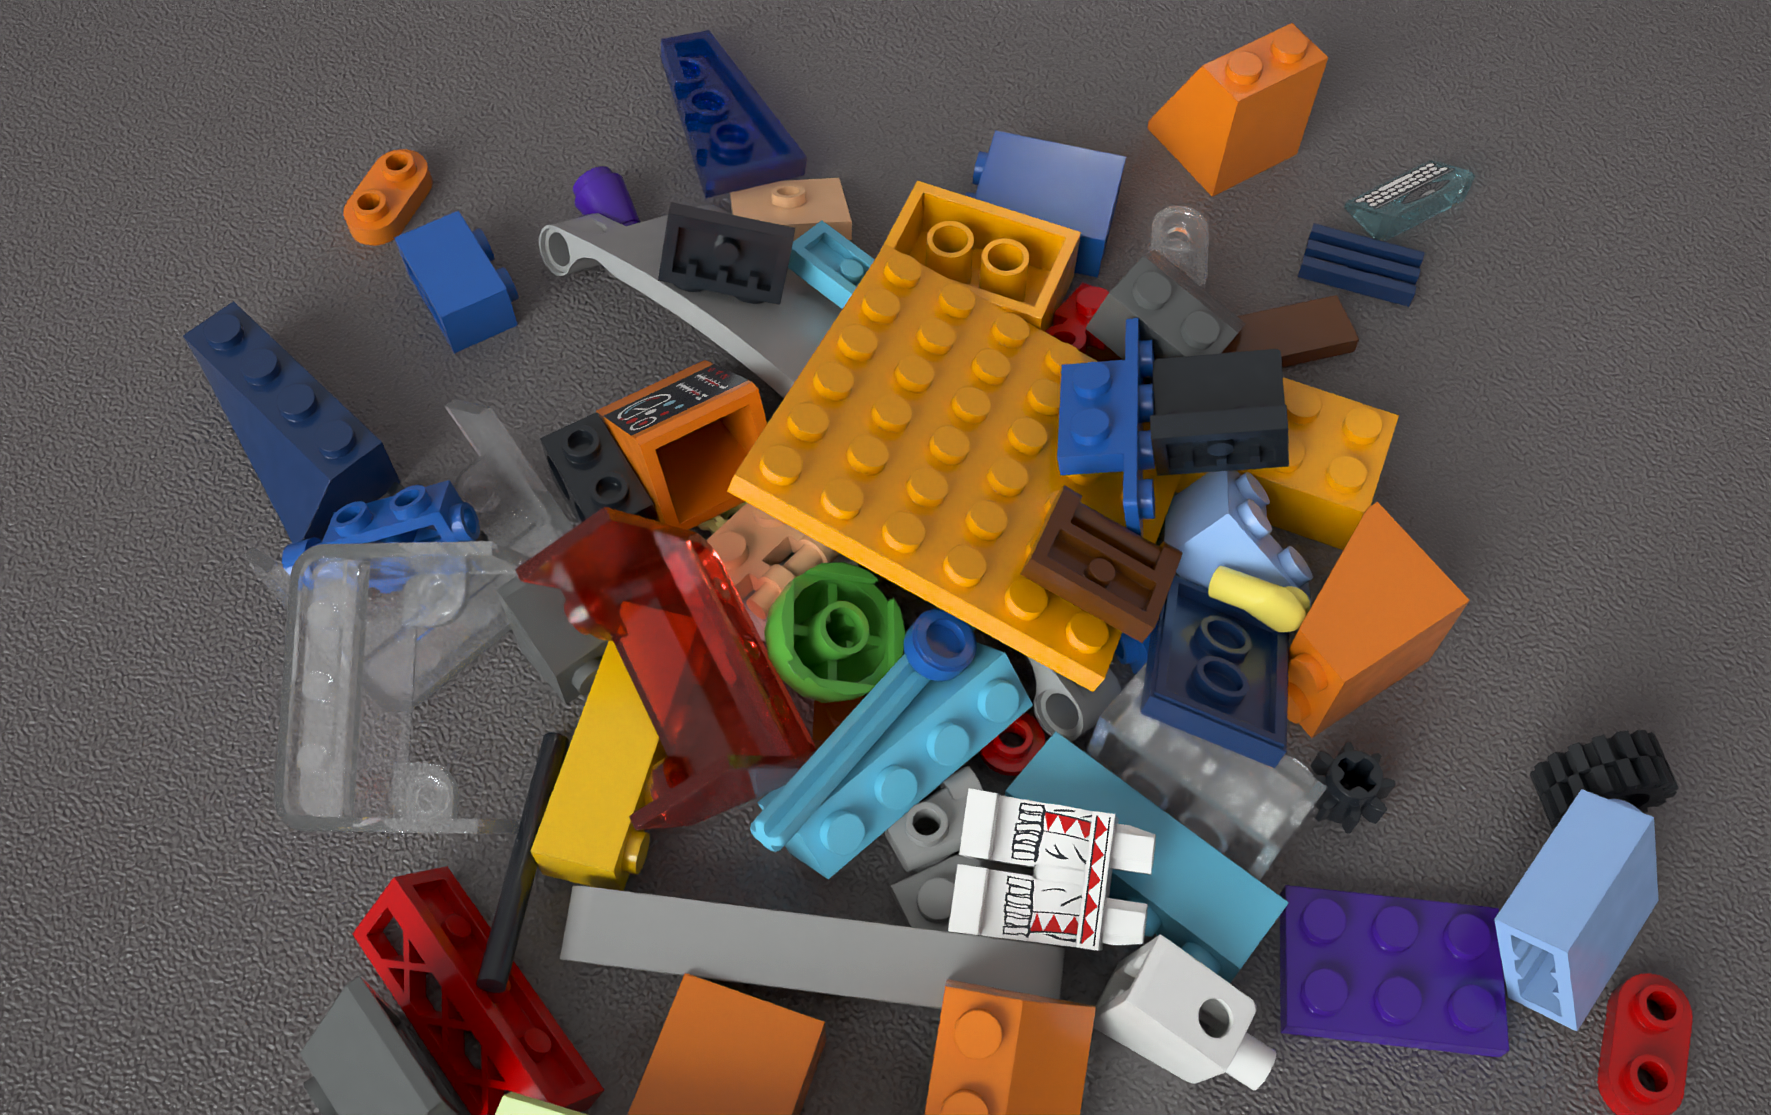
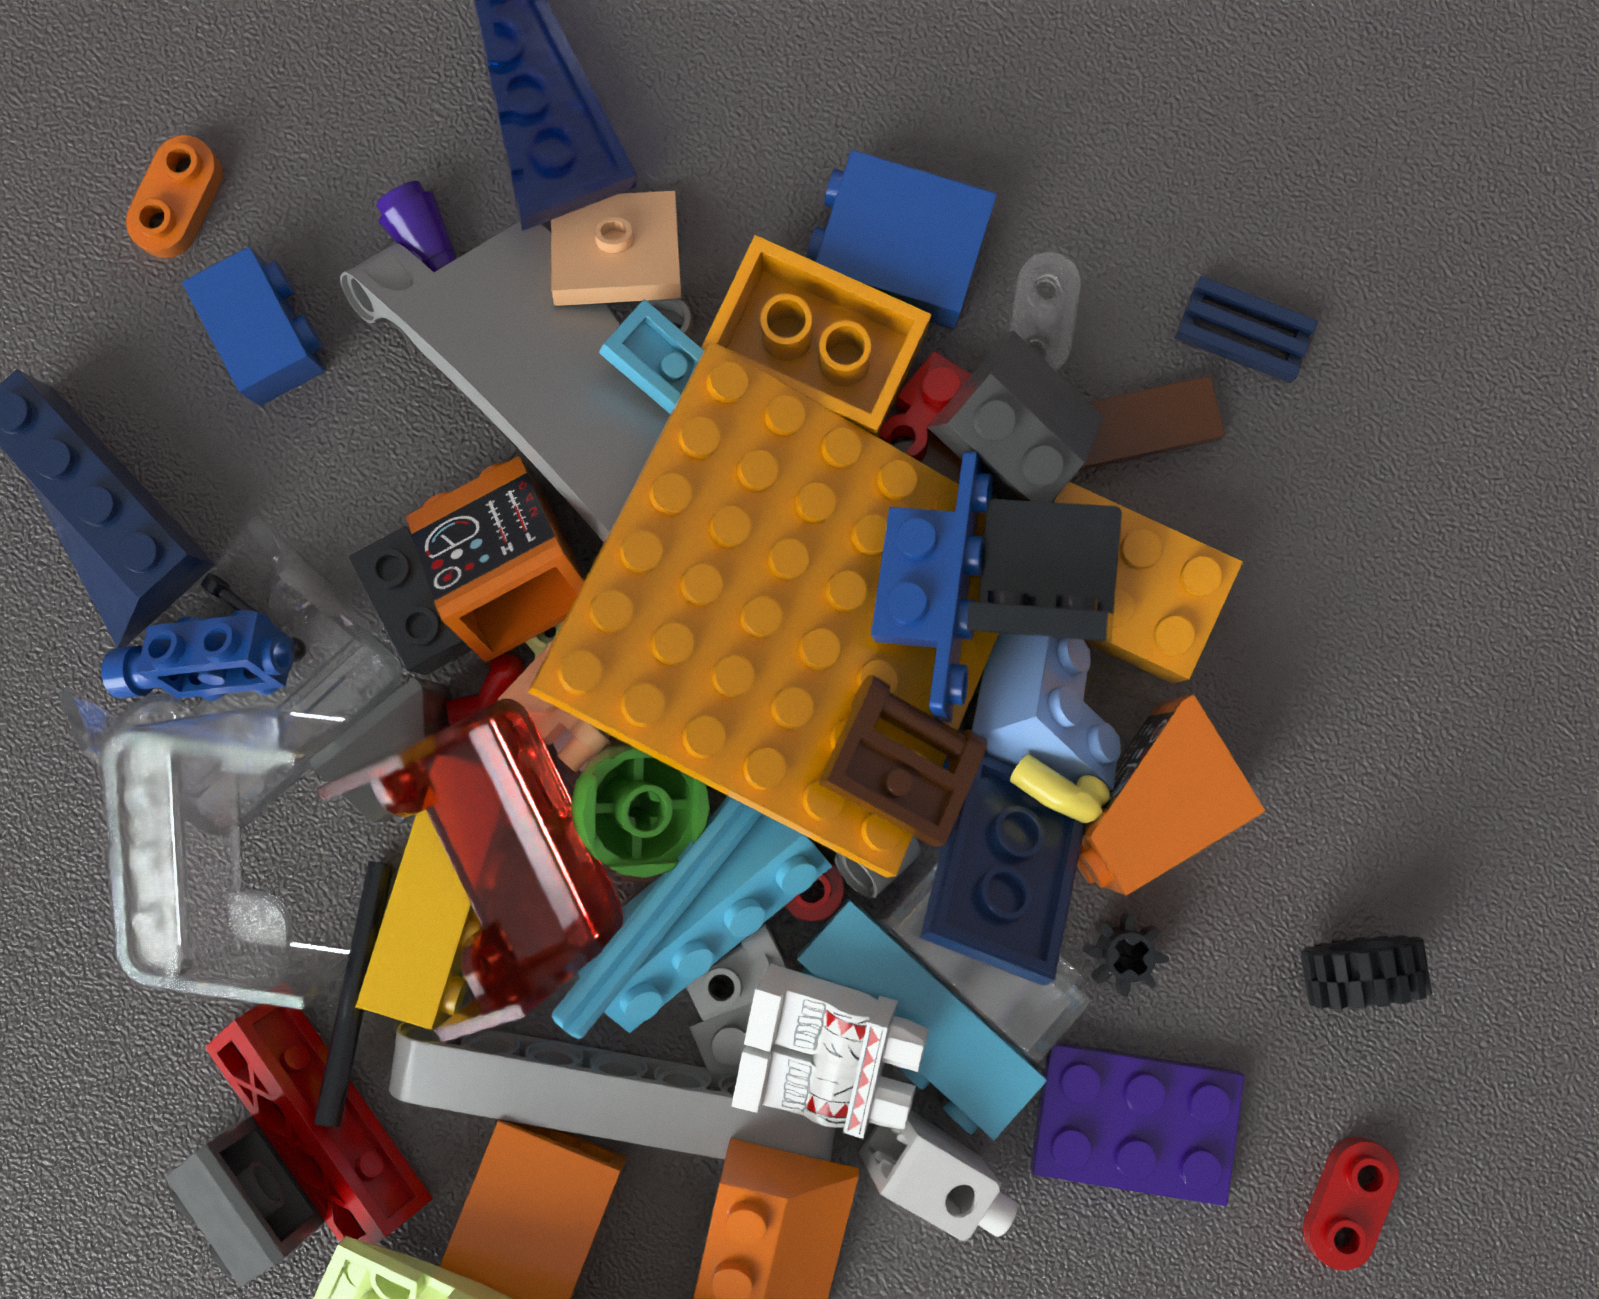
camera: 10 degrees right, 25 degrees up
(725, 254) = (536, 347): black bracket -> none
(939, 645) = (739, 829): blue tile -> none
(1243, 109) = (1138, 125): orange slope -> none
(1410, 199) = (1316, 237): clear light blue slope -> none
(1578, 908) = (1314, 1098): light blue brick -> none

